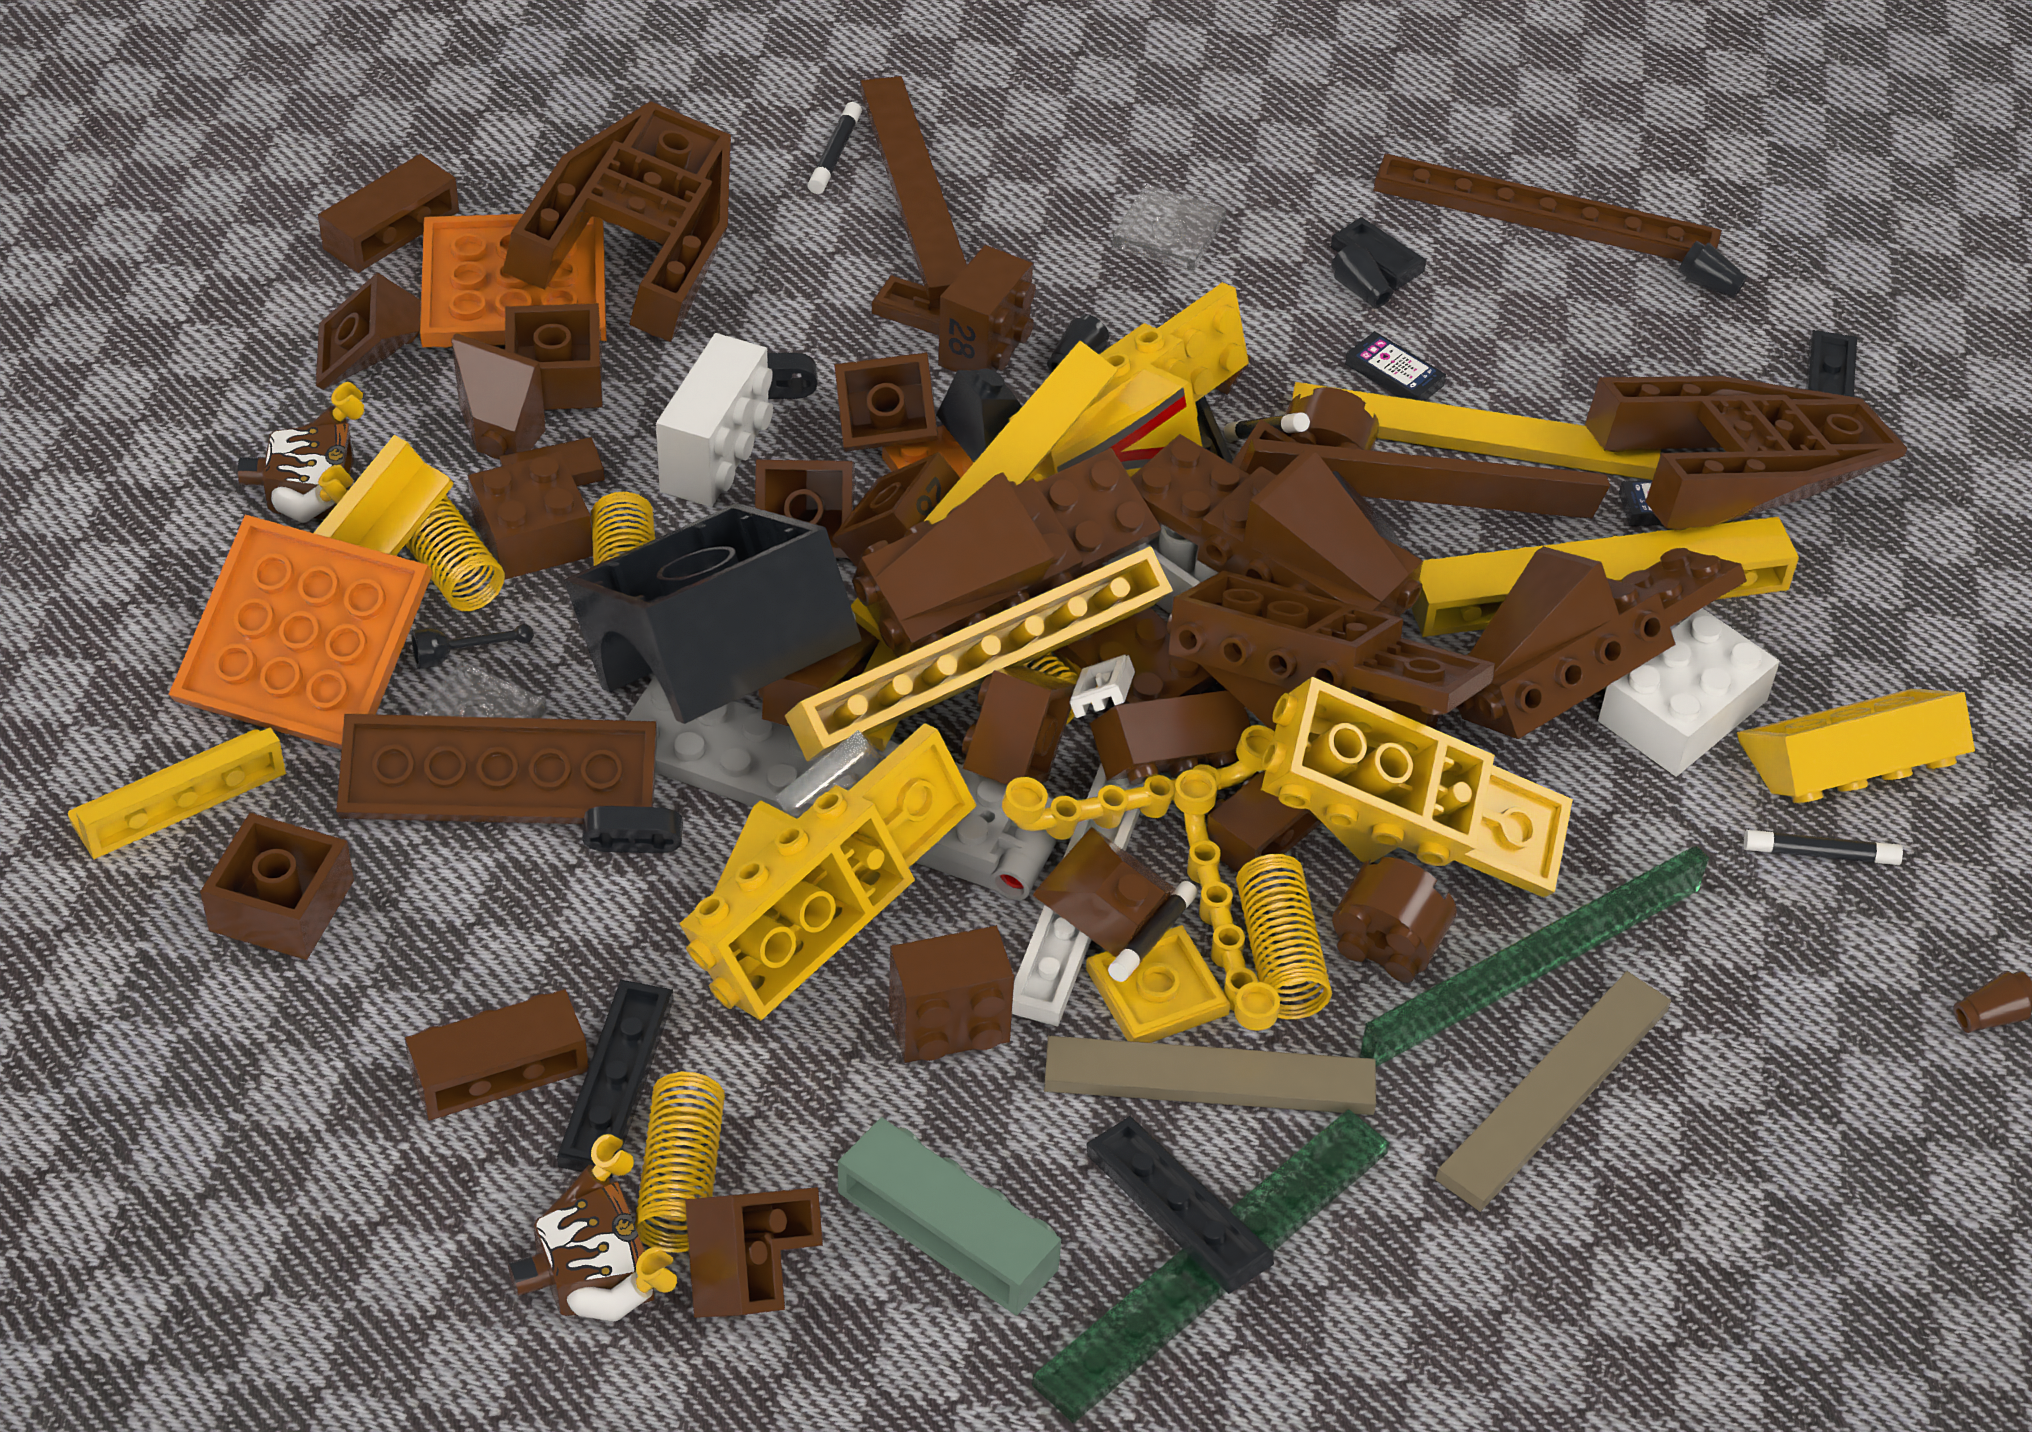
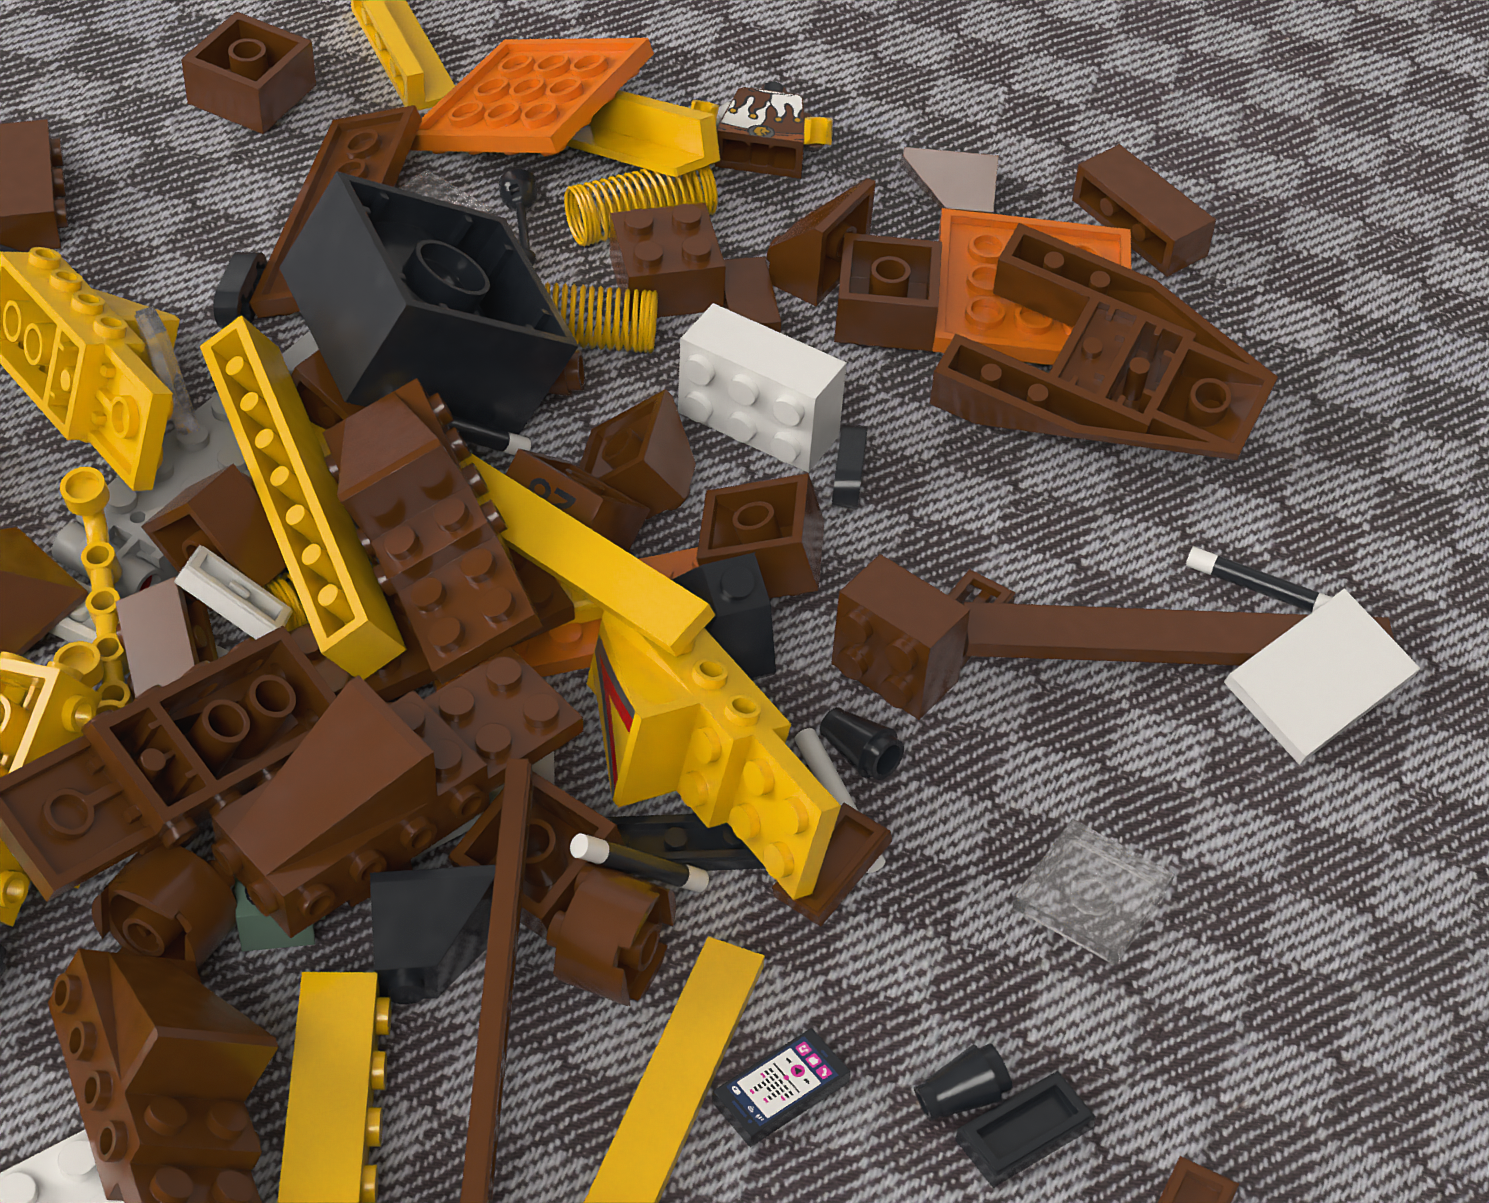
camera: 100 degrees right, 0 degrees up
(937, 109) = (1321, 676): none -> white tile

